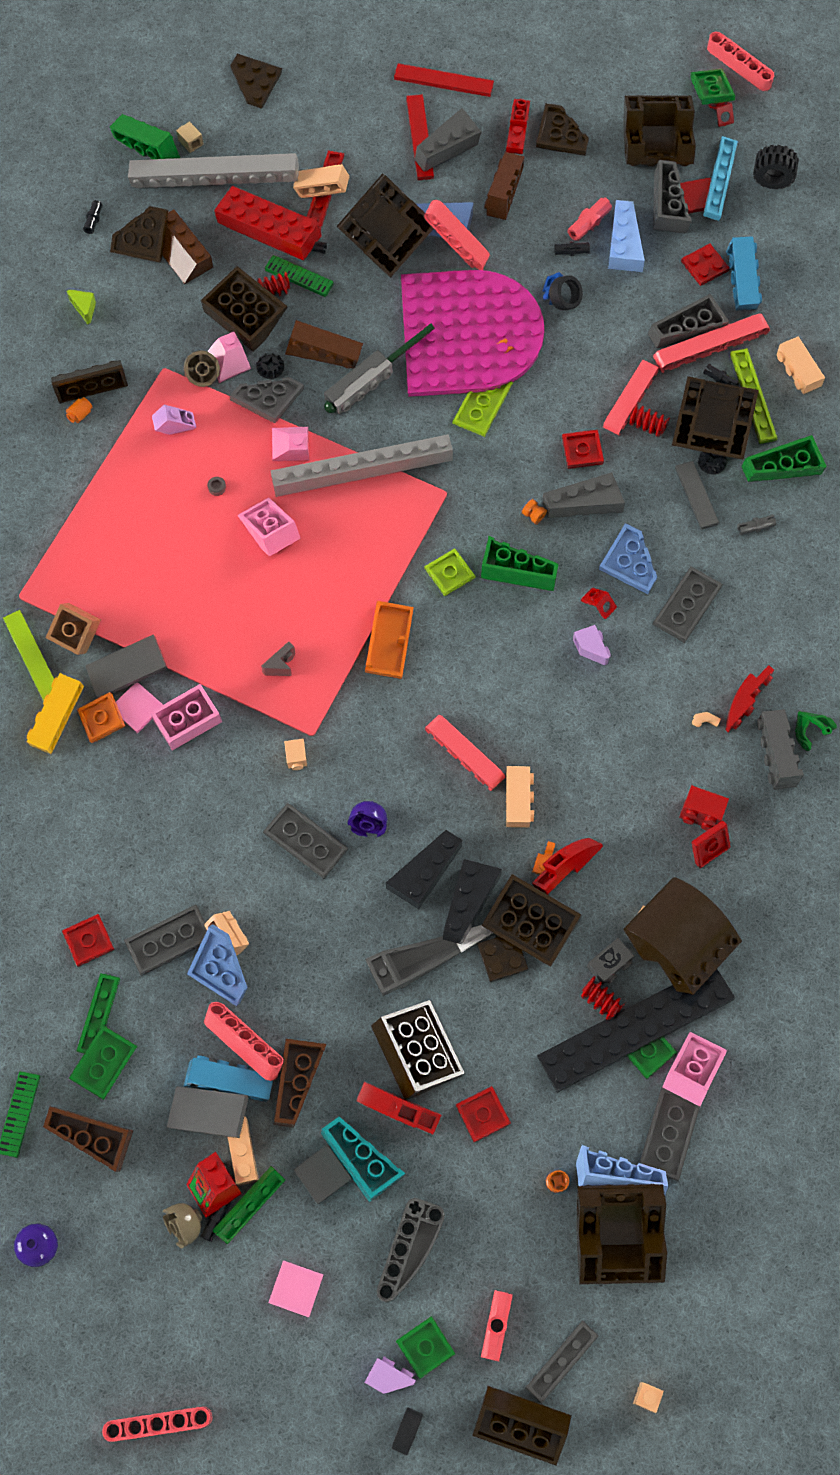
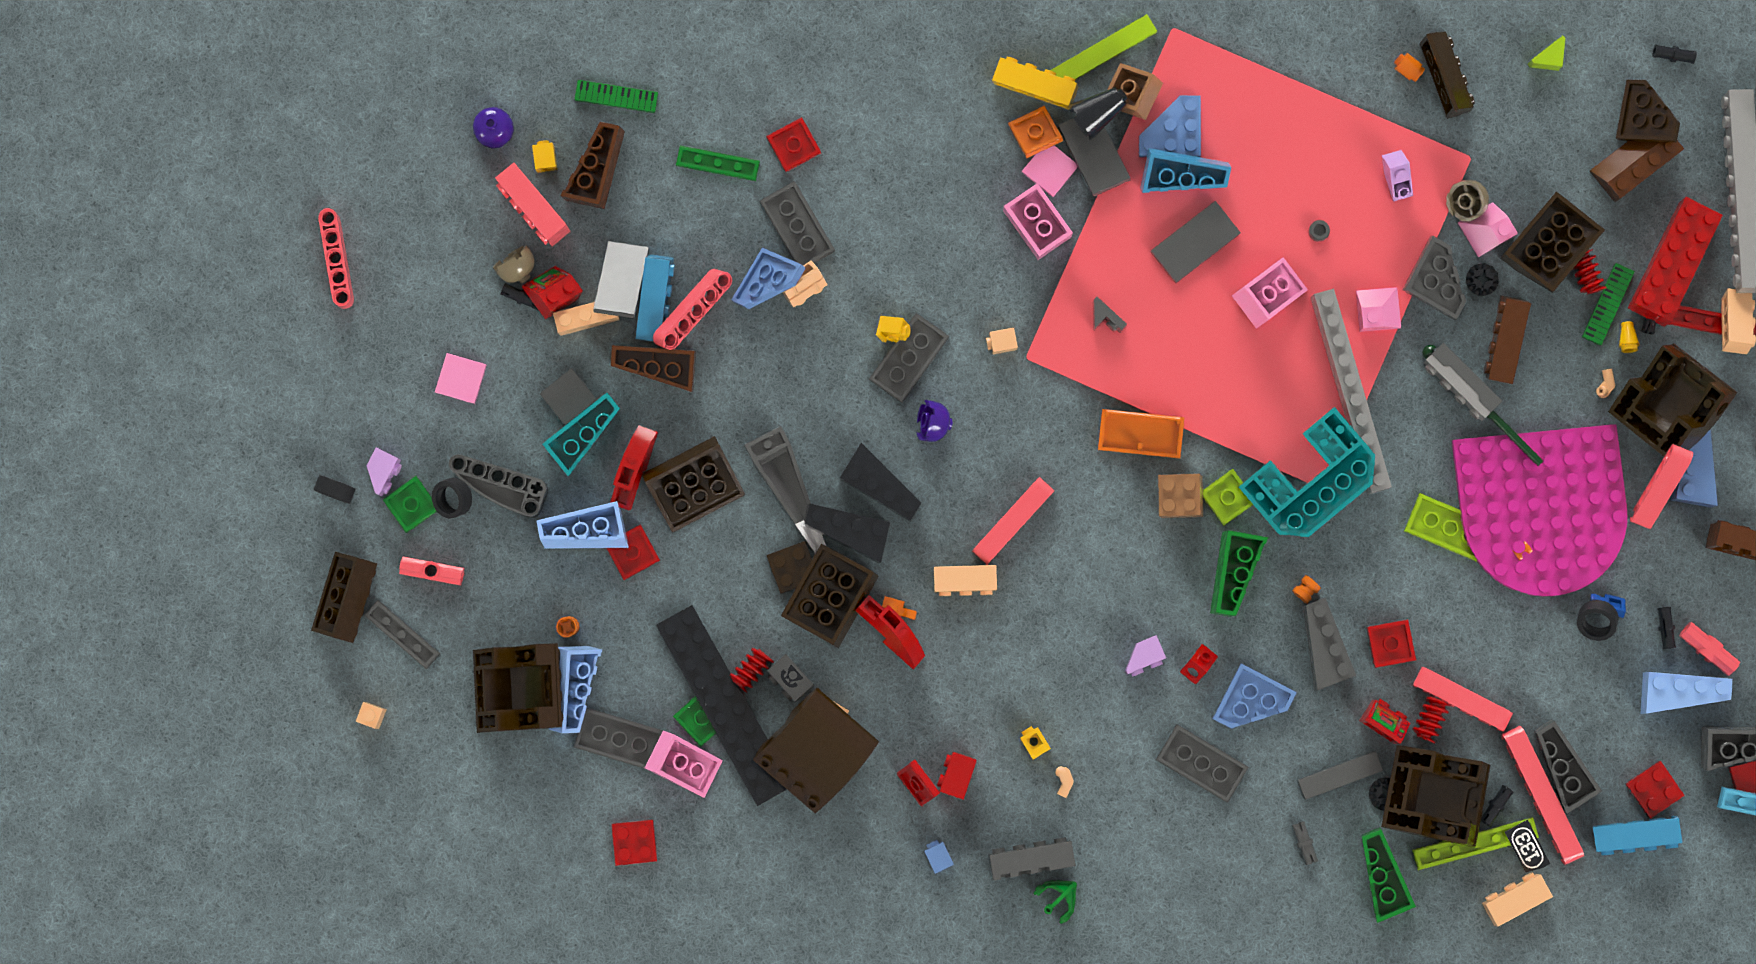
camera: 90 degrees right, 15 degrees up
(72, 1189) = (544, 156): none -> yellow brick
(88, 654) = (1098, 110): none -> black cone
(102, 1062) = (669, 172): green tile -> none
(114, 598) = (1175, 129): none -> medium blue plate
(121, 1202) = (528, 200): none -> coral brick
(152, 593) = (1182, 172): none -> dark azure wedge
(217, 585) = (1195, 242): none -> dark grey tile
(248, 1205) = (536, 327): green tile -> none
(277, 850) = (892, 329): none -> yellow brick
(330, 261) = (1628, 338): none -> yellow cone
(367, 279) = (1607, 385): none -> light nougat arm
(430, 1311) = (463, 493): none -> black tyre
(448, 607) = (1180, 495): none -> medium nougat brick
(449, 485) = (1345, 478): none -> teal slope
(458, 1154) = (586, 528): none -> light blue wedge
(651, 454) = (1385, 721): none -> red slope
(673, 736) = (1042, 745): none -> yellow brick
(745, 697) = (1083, 820): red slope -> none
(755, 356) = (1527, 847): none -> black sticker
(772, 1122) = (634, 842): none -> red plate
(778, 831) = (938, 856): none -> medium blue brick

